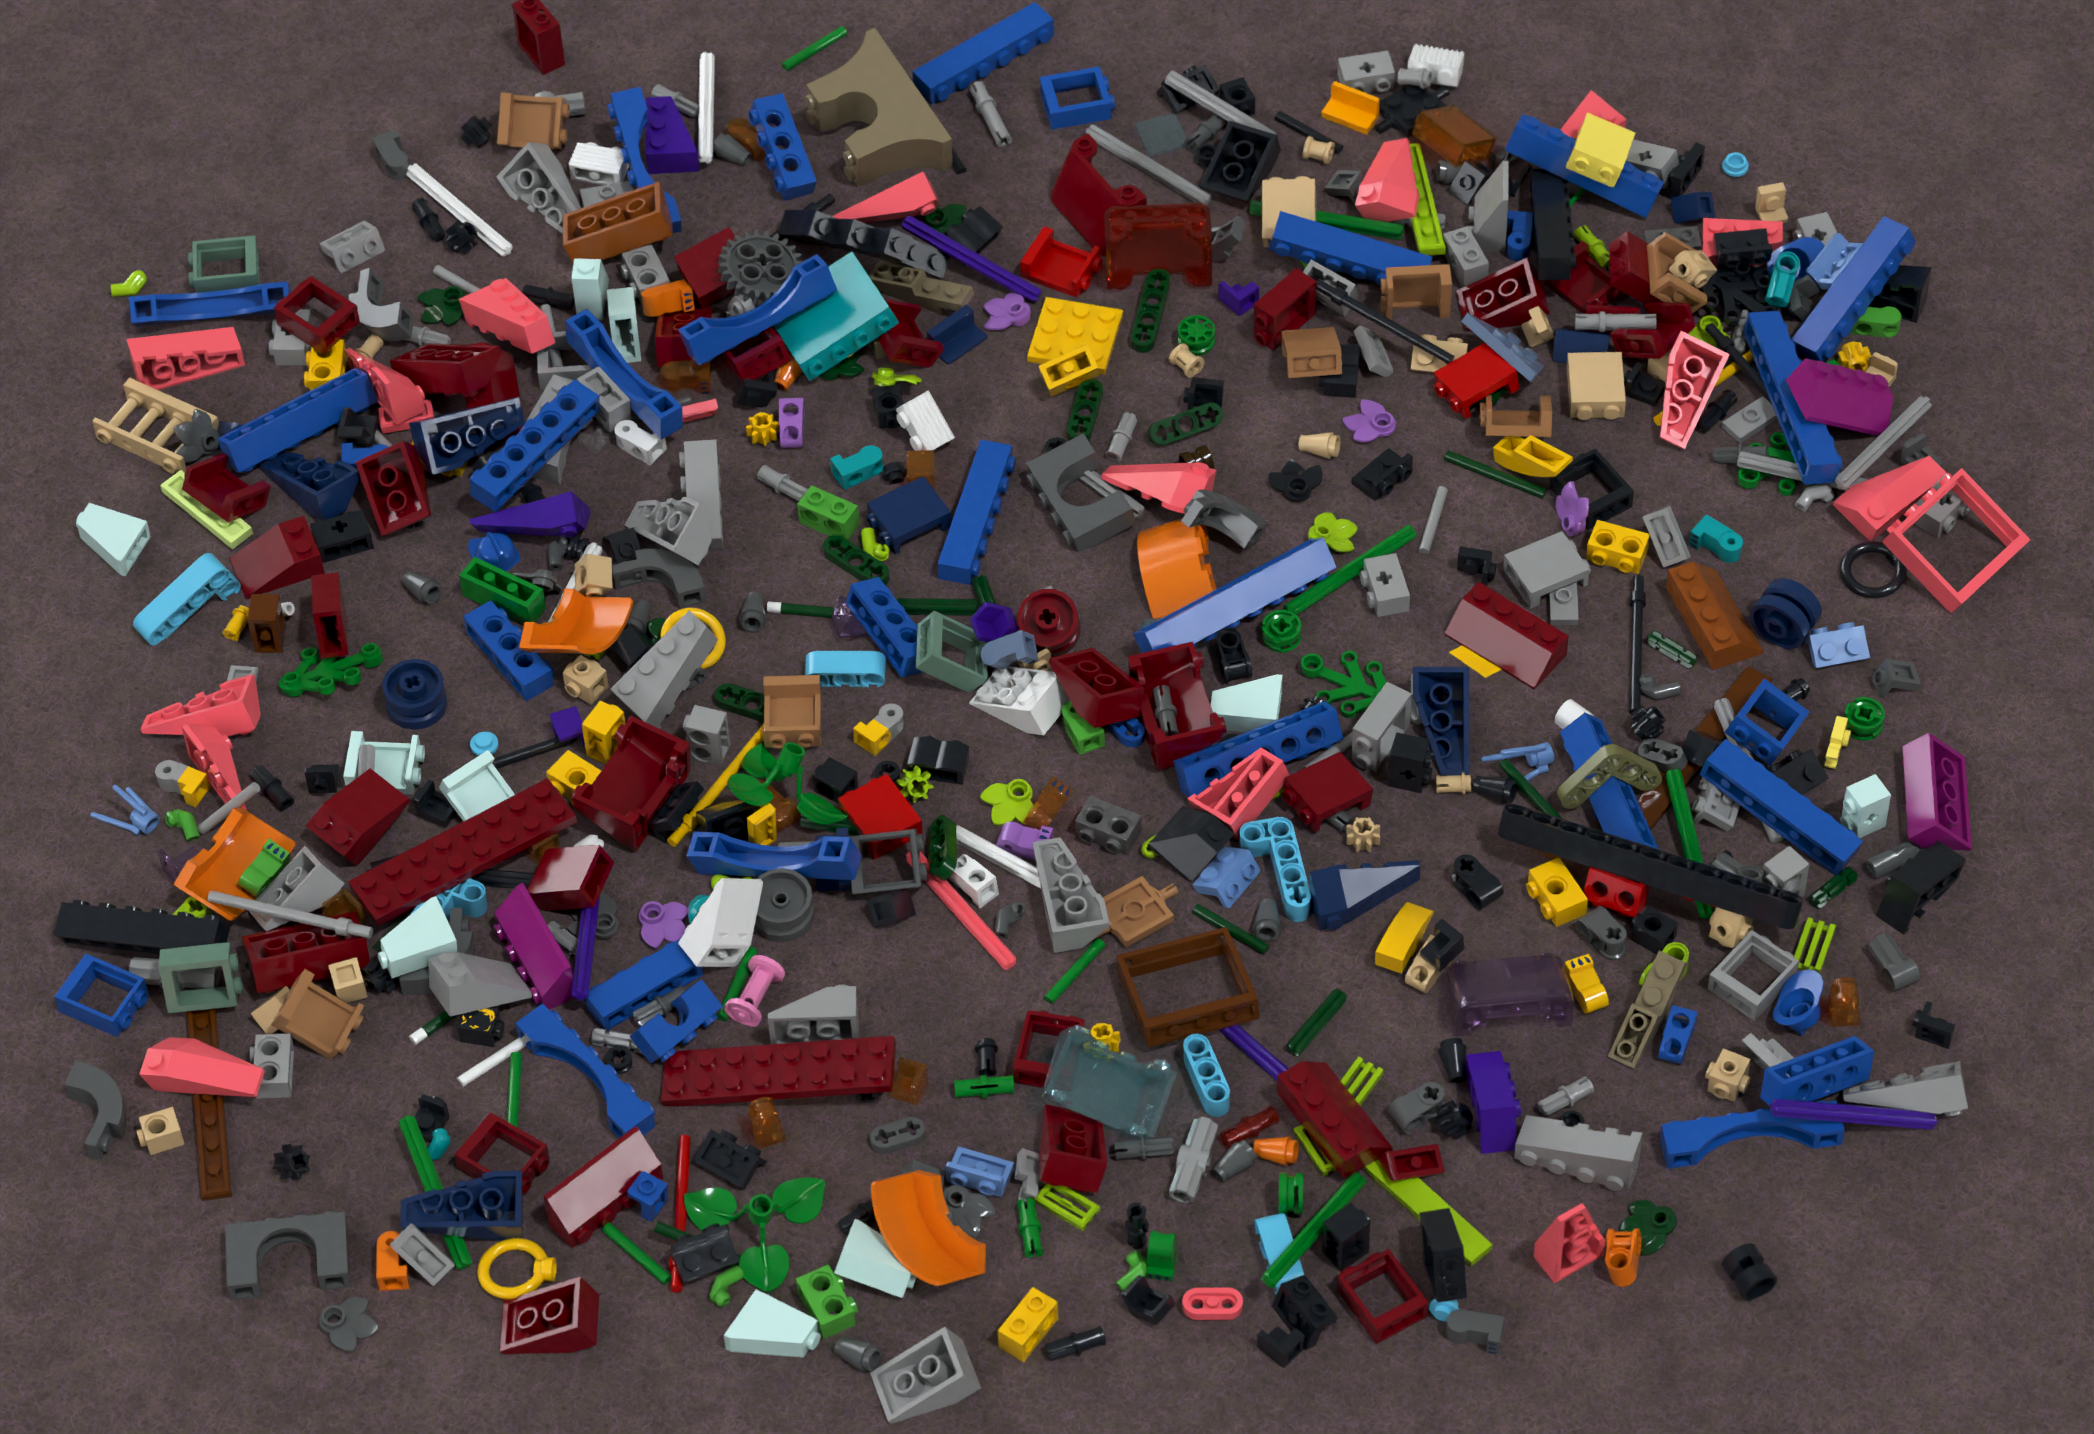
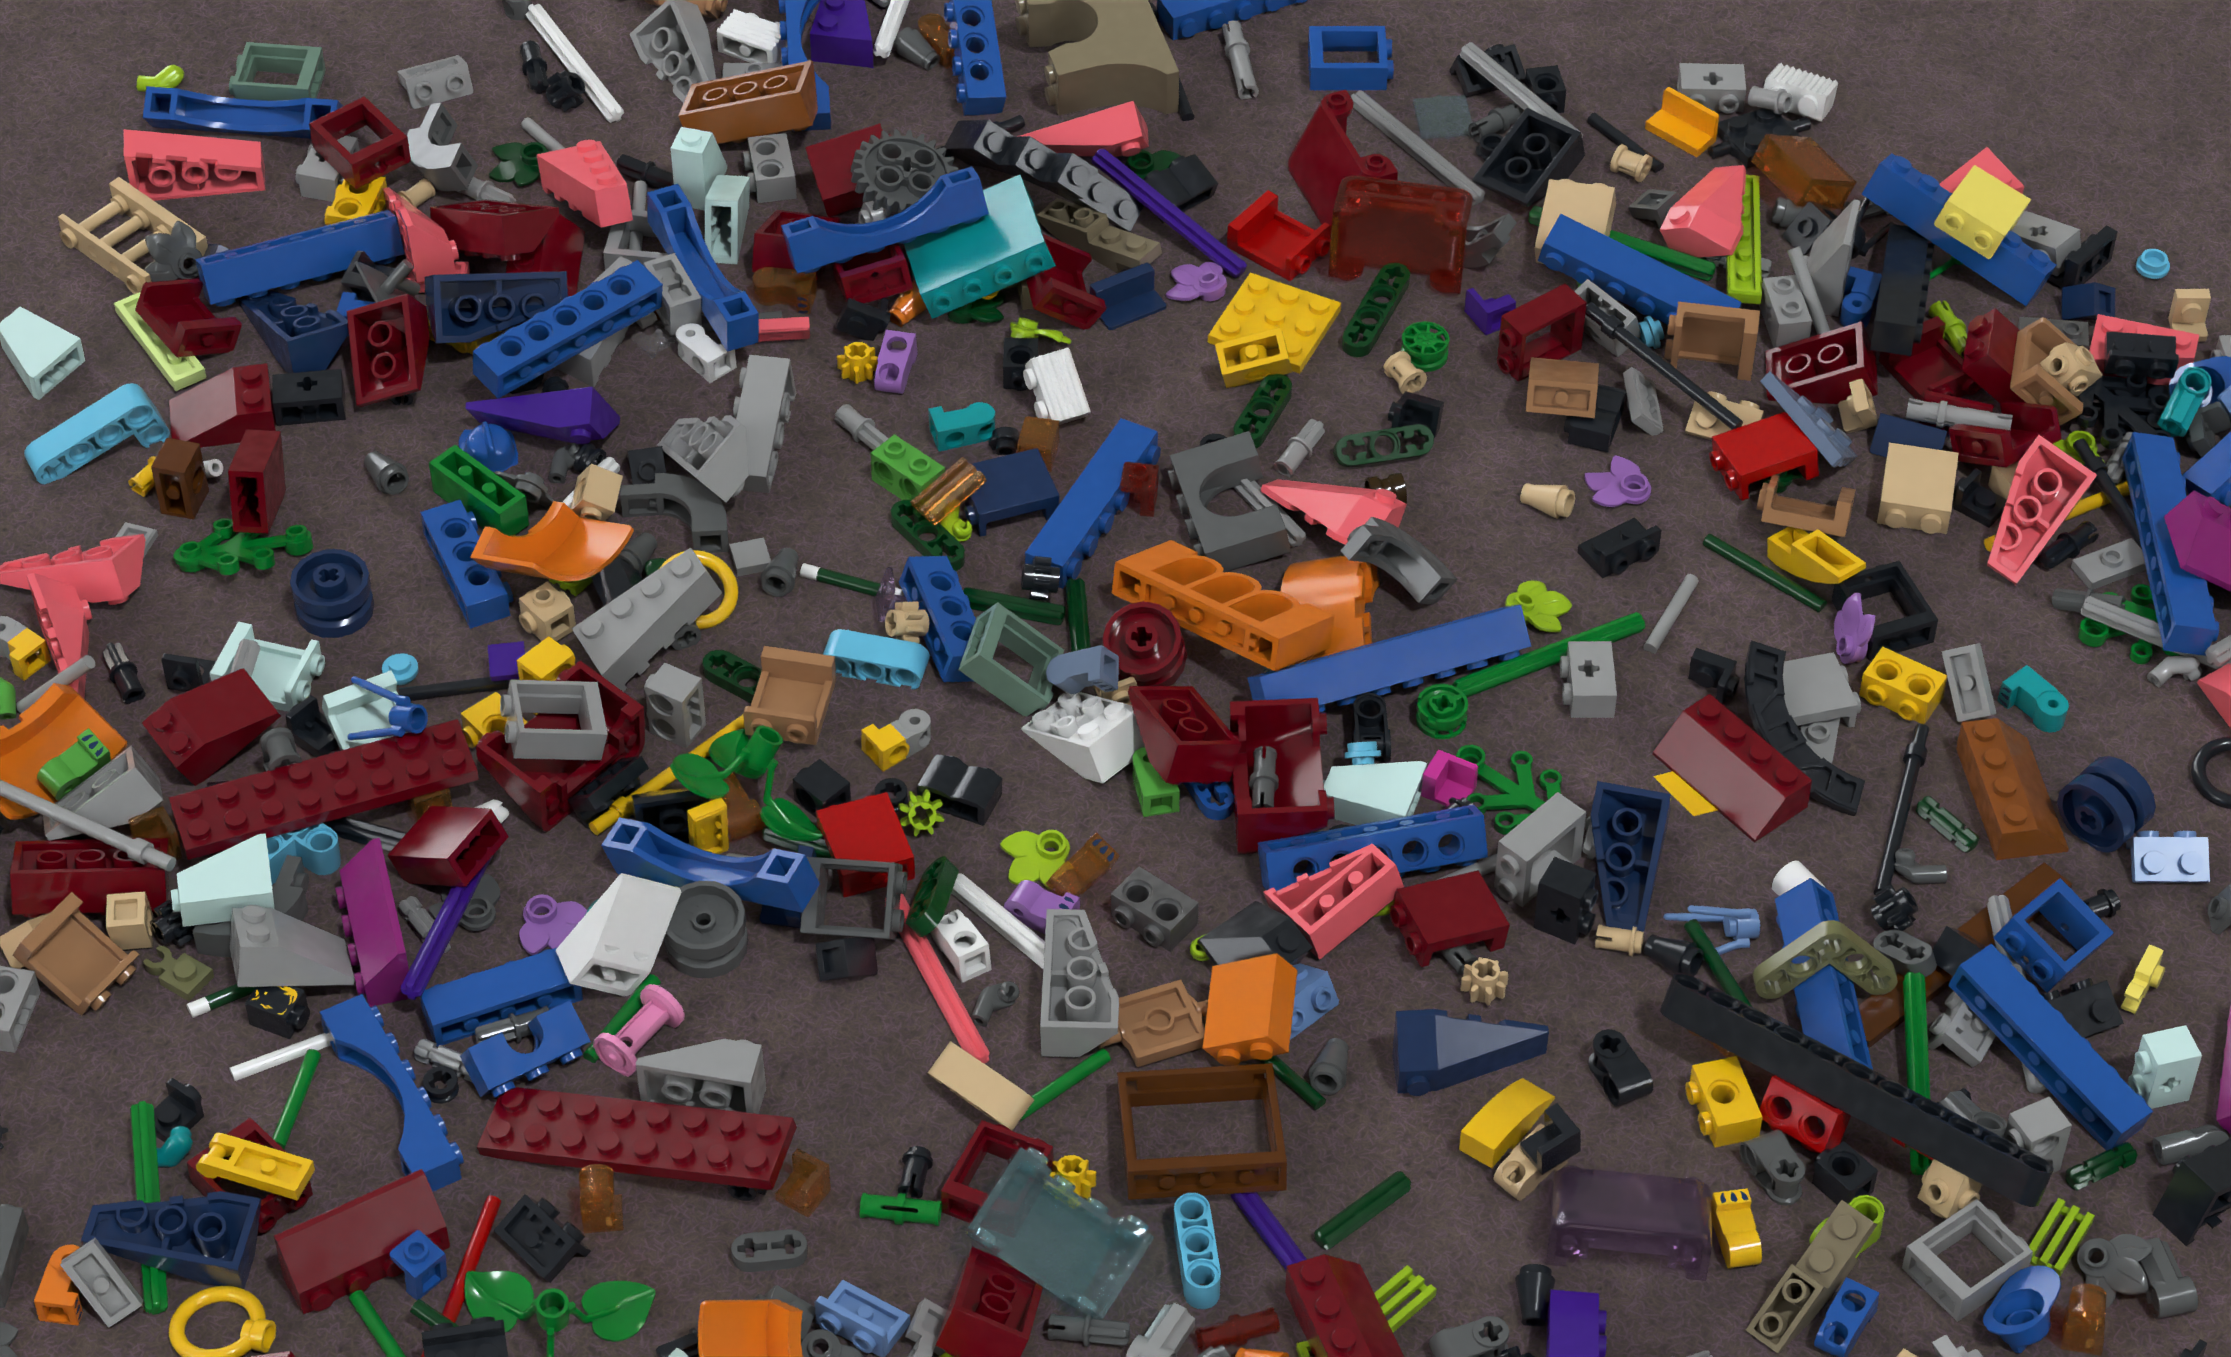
camera: 10 degrees right, 5 degrees down
(379, 436) = (386, 287): none -> dark grey shield
(397, 1015) = (181, 976): none -> olive plate
(419, 829) = (278, 749): none -> dark grey piece
(509, 784) = (403, 716): none -> blue plant
(509, 1147) = (256, 1166): none -> yellow plate
(623, 747) = (557, 698): none -> light grey window
(667, 298) = (787, 197): orange leg -> none
(724, 603) = (750, 556): none -> light grey tile
(862, 522) = (945, 488): none -> clear orange tile
(863, 635) = (907, 622): none -> tan gear
(954, 582) = (1040, 578): none -> black gear
(993, 622) = (1072, 631): dark purple panel -> none
(1011, 489) = (1142, 481): none -> clear red bracket
(1018, 984) = (980, 1086): none -> tan beam
(1045, 565) = (1224, 605): none -> orange fence
(1200, 890) = (1250, 1009): none -> orange brick
(1232, 676) = (1362, 752): none -> medium azure plate
(1261, 840) = (1370, 967): medium azure beam -> none
(1294, 478) = (1507, 537): black plate -> none
(1300, 683) = (1448, 778): none -> dark pink panel
(1366, 292) = (1651, 332): none -> medium azure plate
(1481, 238) = (1808, 290): none -> light grey bar
(1534, 599) = (1773, 723): none -> black tile
(1861, 958) = (2120, 1266): none -> dark grey plate
(1865, 718) = (2187, 955): green wheel -> none

